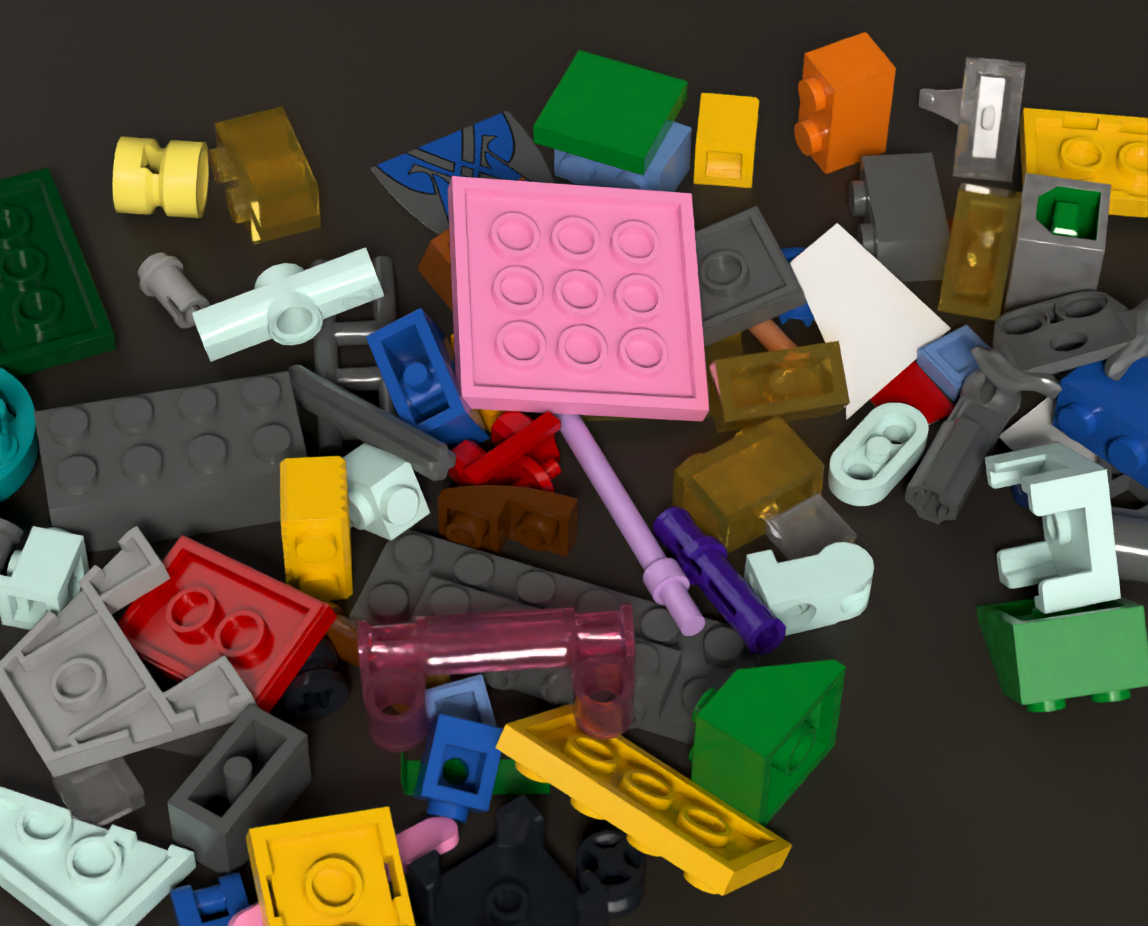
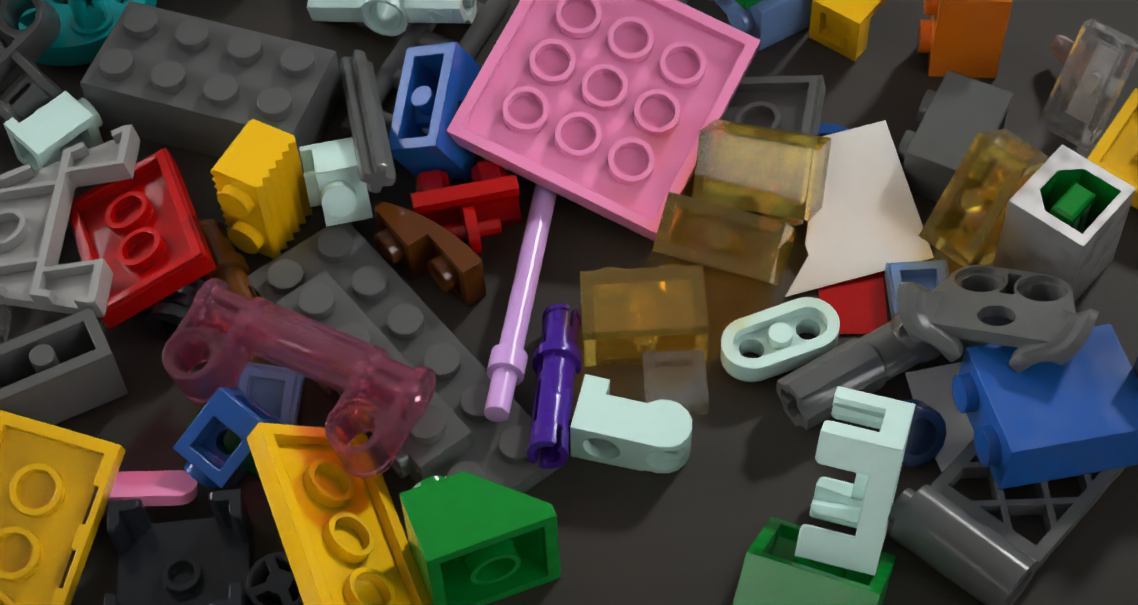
camera: 35 degrees right, 5 degrees up
(772, 307) = (762, 170): none -> clear yellow brick

